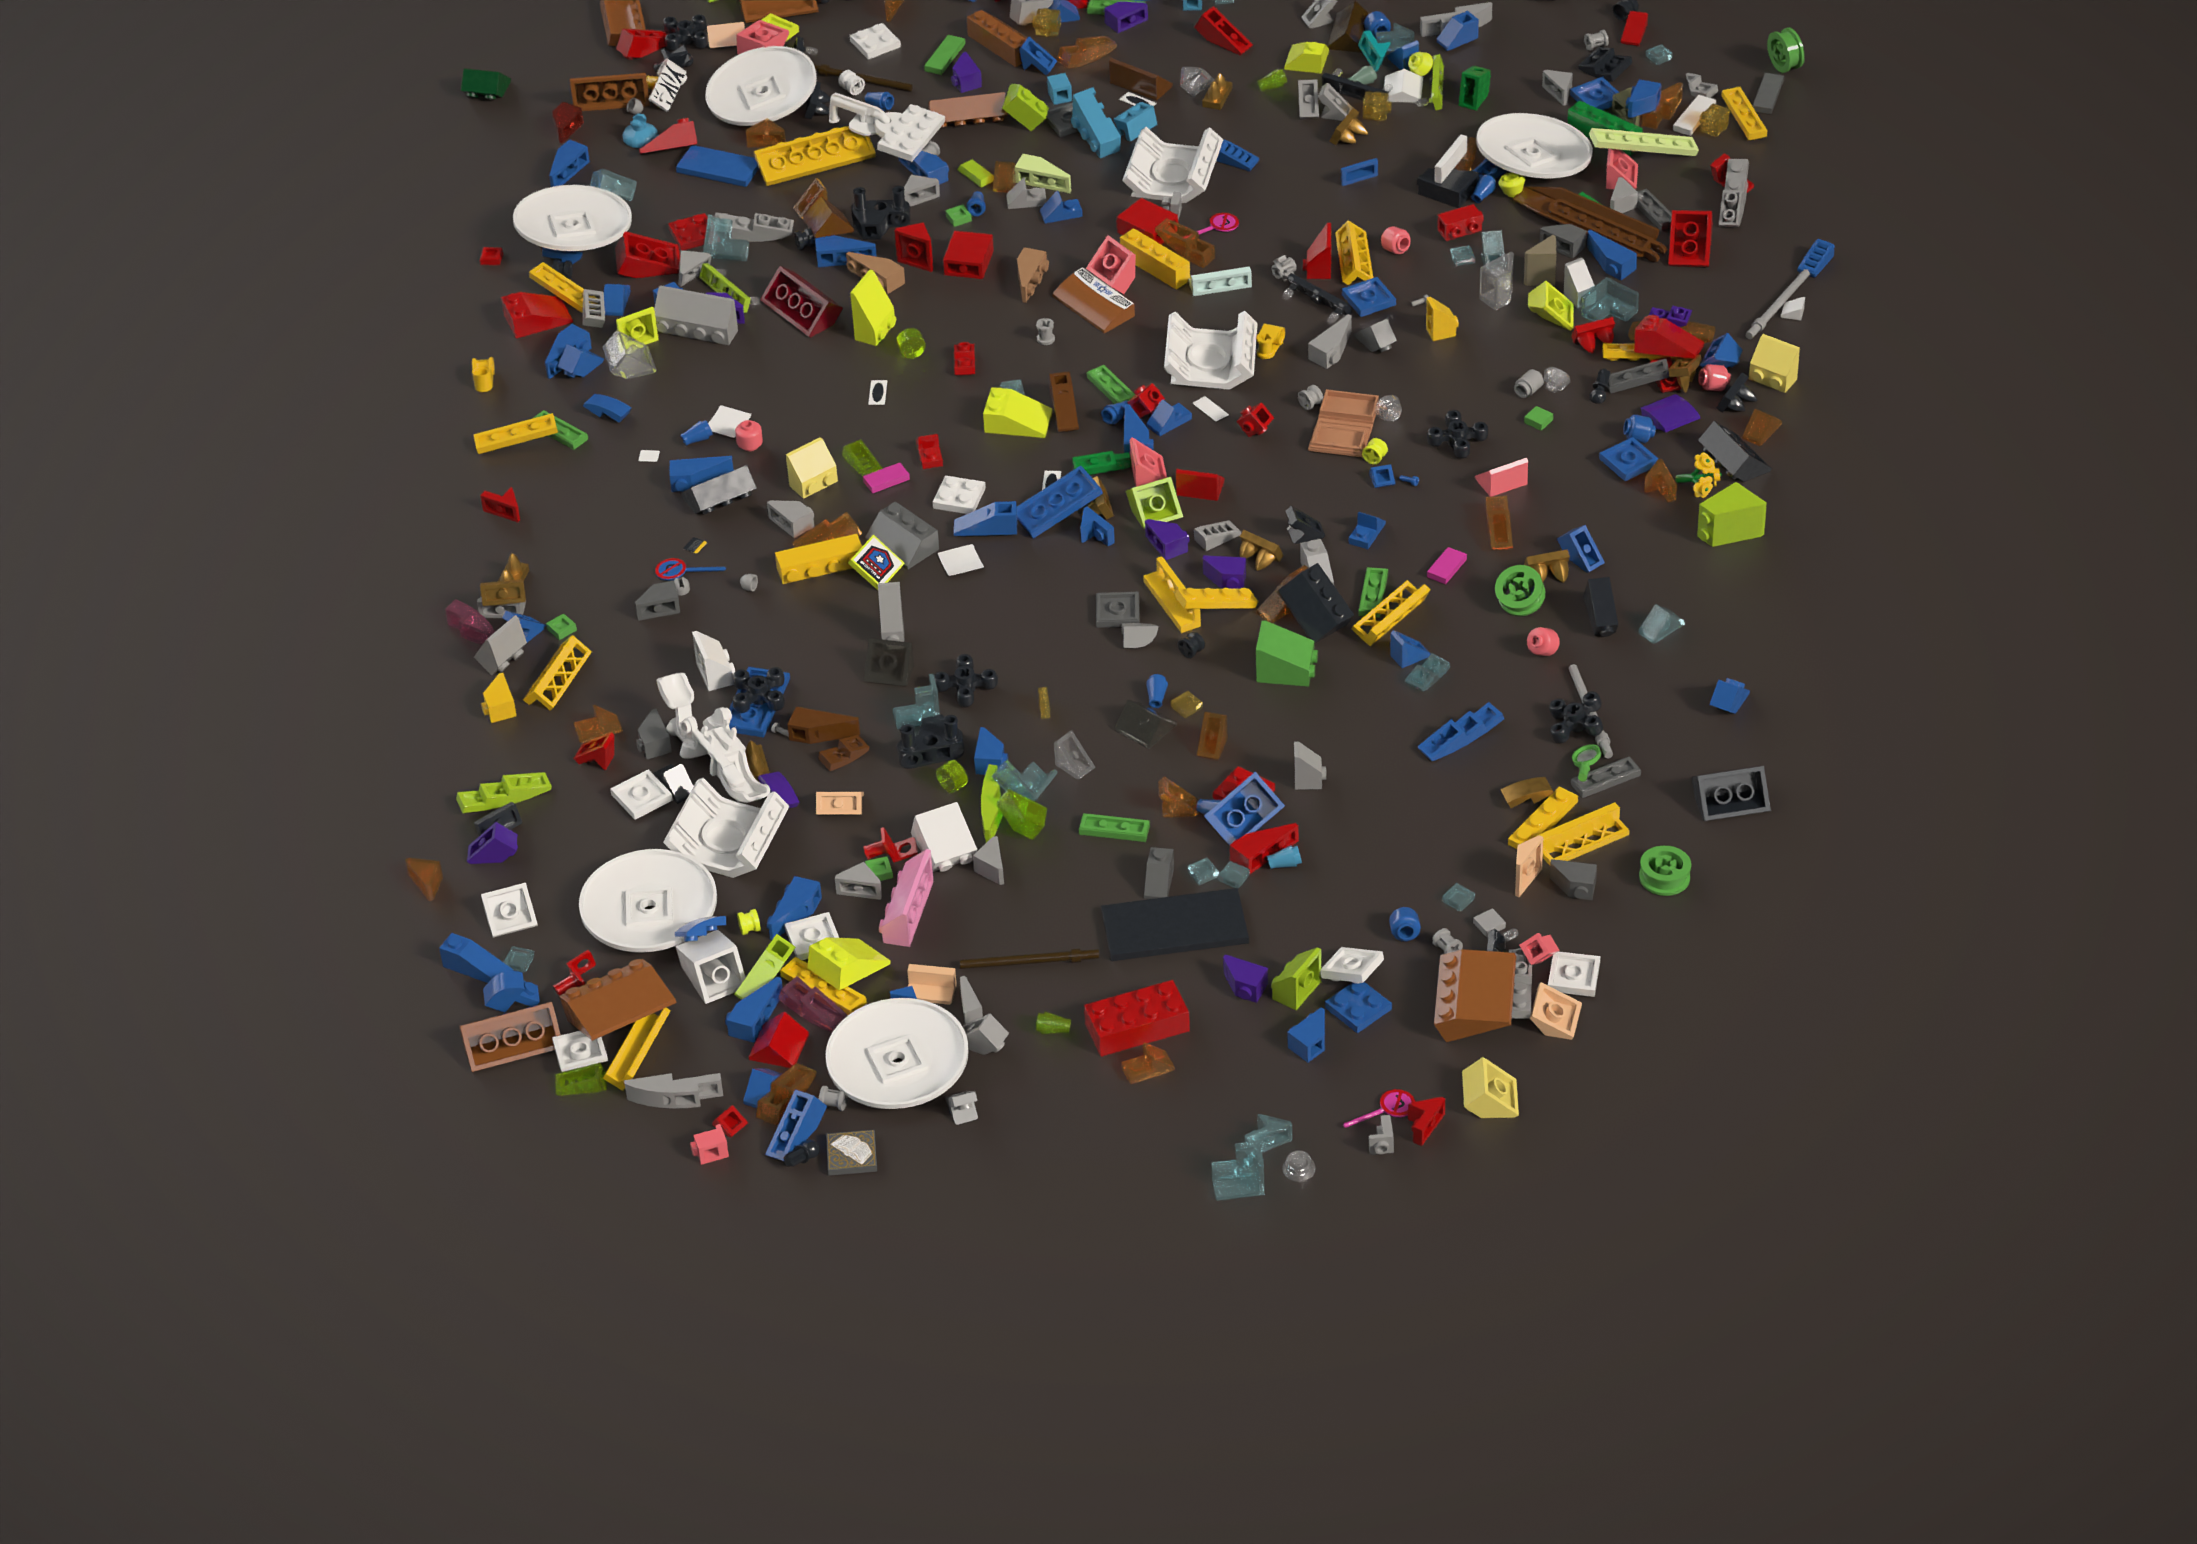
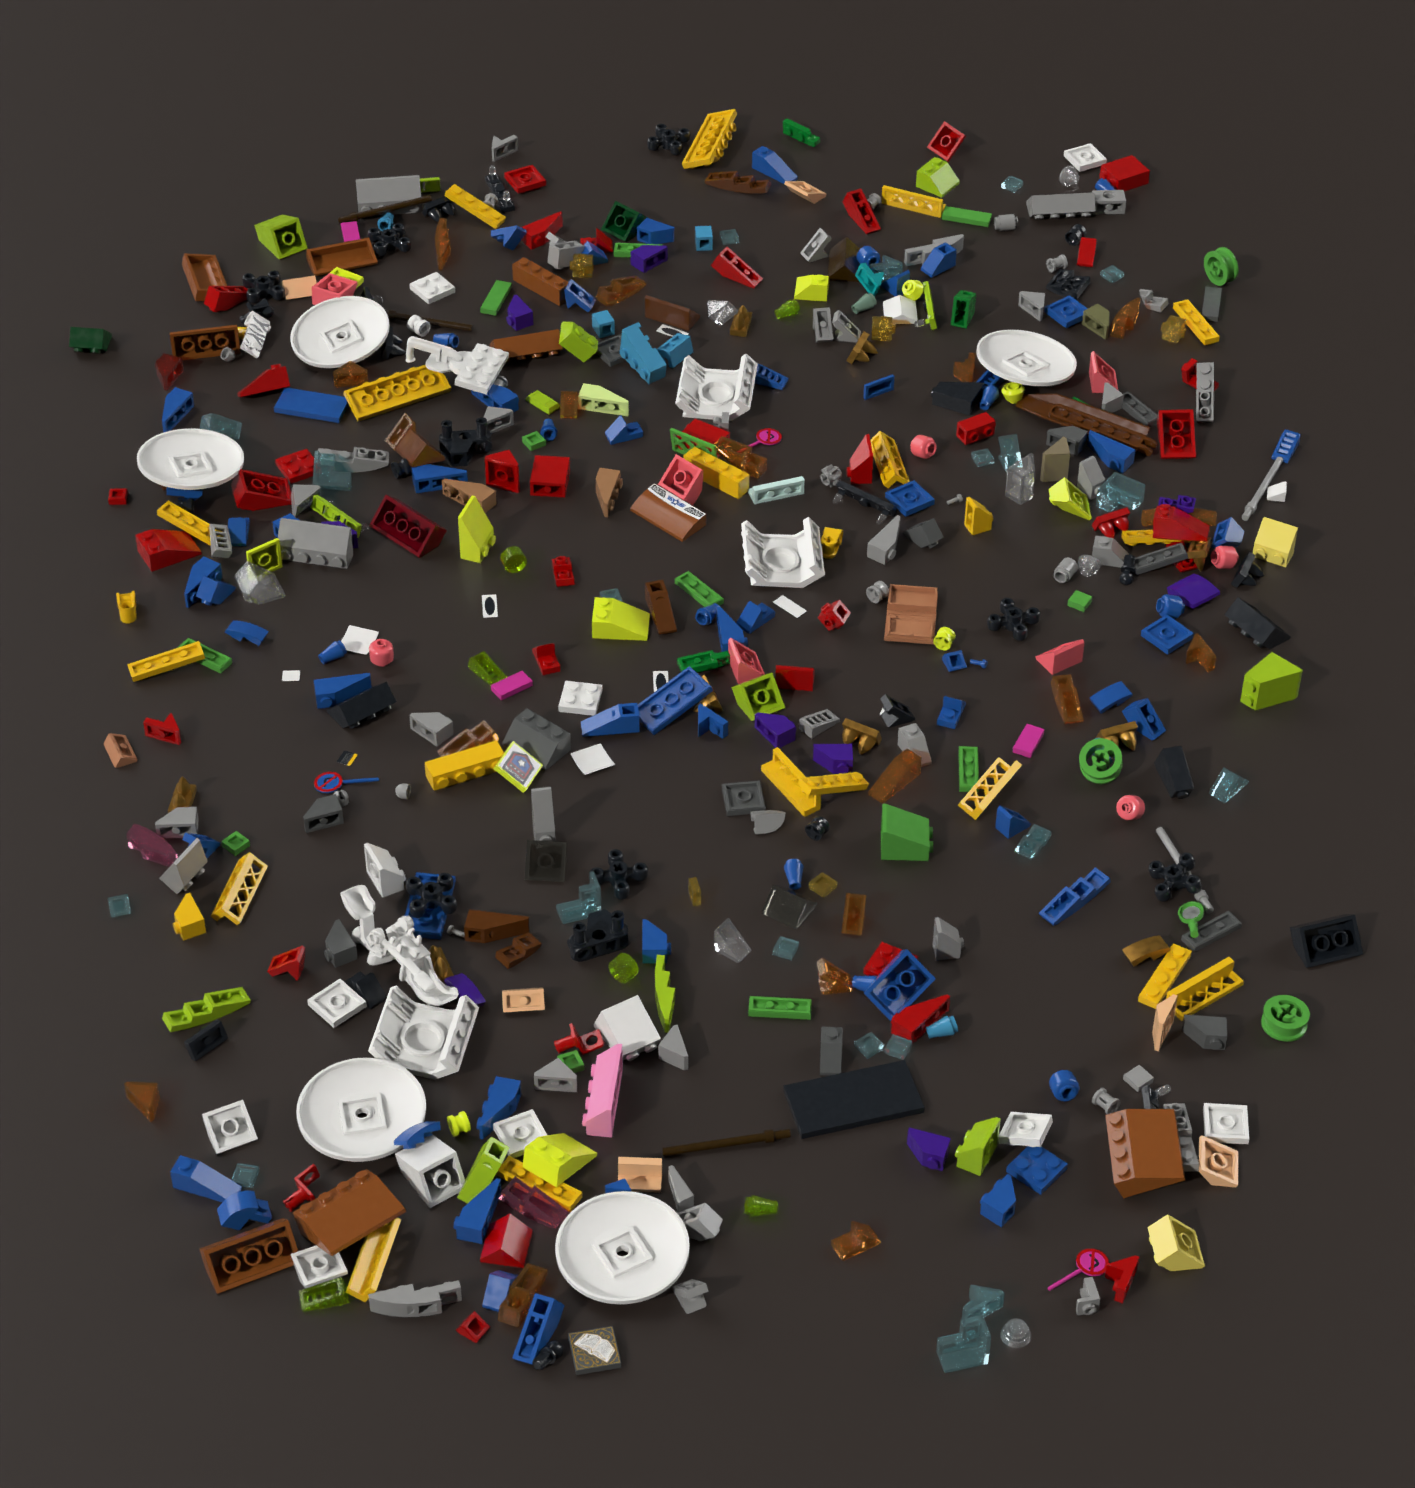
camera: 10 degrees left, 0 degrees up
(429, 683) = (119, 905): none -> clear light blue slope
(453, 524) = (119, 750): none -> nougat slope
(493, 845) = (204, 1063): dark purple slope -> none
(503, 592) = (179, 815): pearl gold tile -> none
(601, 724) = (286, 938): clear orange slope -> none
(639, 132) = (236, 378): dark azure hair -> none
(710, 1145) = (459, 1354): coral brick -> none
(811, 468) = (444, 681): light yellow slope -> none
(833, 1098) = (568, 1296): light grey bush -> none
(1022, 198) = (587, 422): light grey slope -> none
(1022, 813) = (696, 1001): clear neon green slope -> none
(1028, 784) = (692, 973): clear light blue panel -> none
(1045, 334) = (631, 543): light grey bush -> none
(1132, 767) = (785, 948): none -> clear light blue tile
(1136, 1018) = (838, 1195): red brick -> none
(1143, 227) = (688, 438): none -> bright green window
(1145, 400) = (733, 601): red brick -> none
(1315, 603) = (924, 783): black slope -> none
(1351, 88) = (856, 313): black piece -> none
(1388, 408) = (948, 599): clear cone -> none
(1450, 159) = (959, 372): white tile -> none
(1458, 897) = (1105, 1055): clear light blue tile -> none
(1539, 948) = (1193, 1102): coral brick -> none
(1549, 521) = (1111, 695): none -> blue slope
(1581, 365) = (1108, 551): none -> light grey slope
(1586, 117) = (1082, 339): green brick -> none
(1643, 98) = (1112, 312): blue slope -> none
(1643, 142) = (1120, 351): yellowish green plate -> none
(1689, 119) = (1153, 325): white tile -> none
(1703, 486) = (1244, 644): yellow plant -> none
(1729, 695) = (1304, 848): blue slope -> none
(1760, 427) = (1273, 600): clear orange slope -> none

